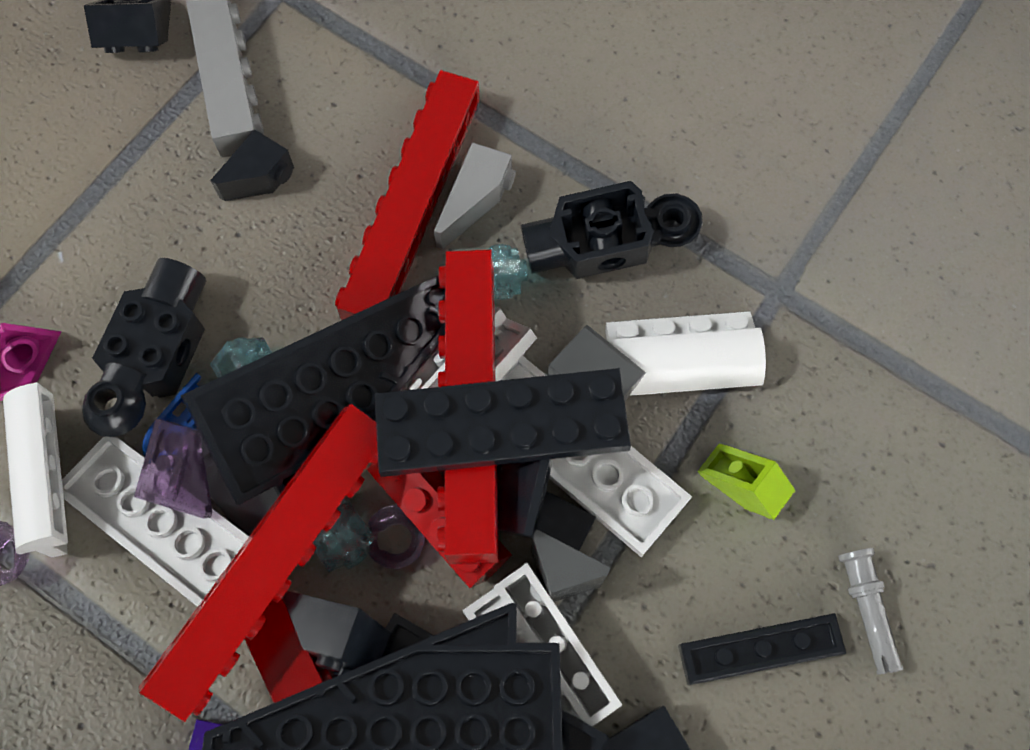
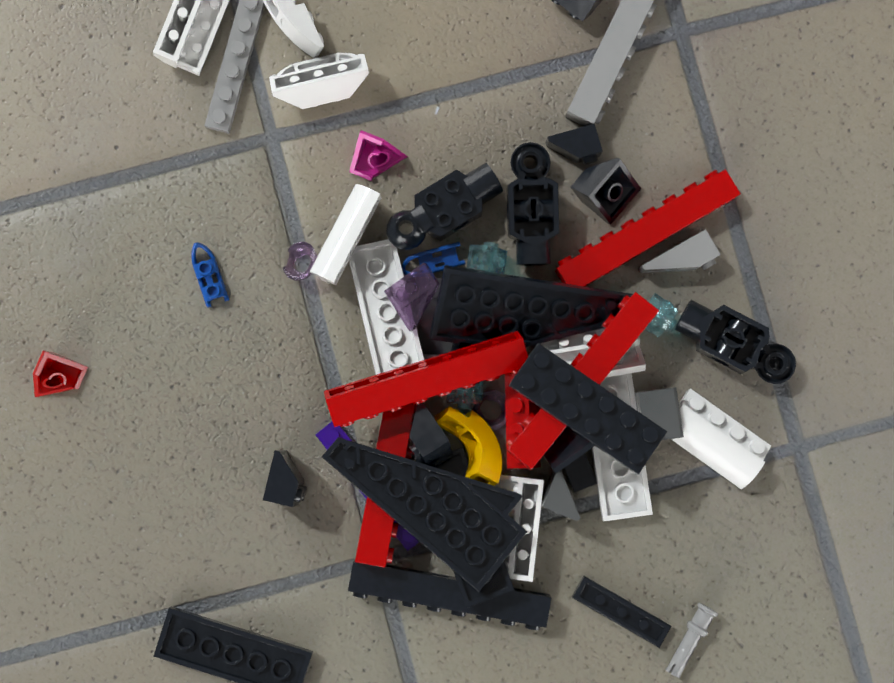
camera: 40 degrees right, 15 degrees up
(254, 268) = (532, 206): none -> black brick
(326, 187) = (606, 189): none -> black slope
(403, 585) = (479, 441): none -> yellow arch
(748, 480) = (687, 529): lime slope -> none

